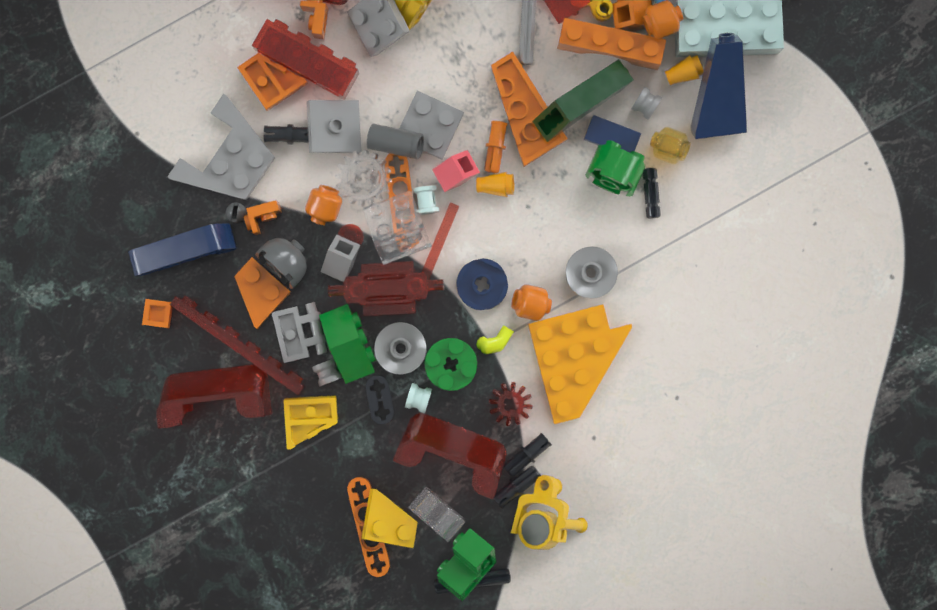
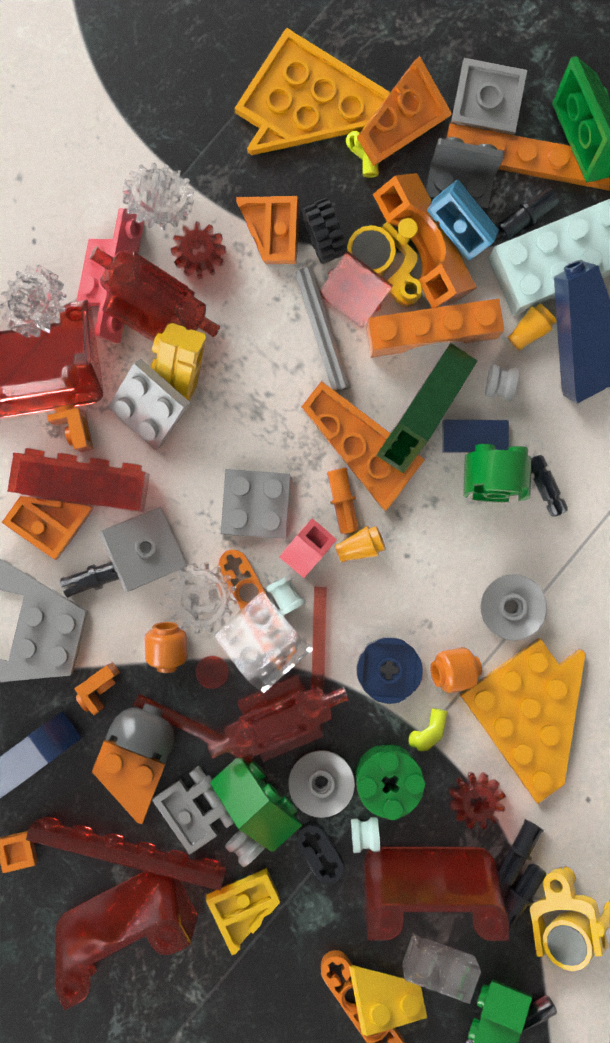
camera: 20 degrees left, 0 degrees up
(241, 212) = (69, 691): dark grey hinge -> none
(326, 279) = (186, 724): none -> clear red bar
(340, 258) = (209, 704): light grey brick -> none
(395, 141) = (222, 540): dark grey pin -> none
(662, 19) = (487, 275): orange head -> none
(670, 145) = (548, 421): clear yellow head -> none

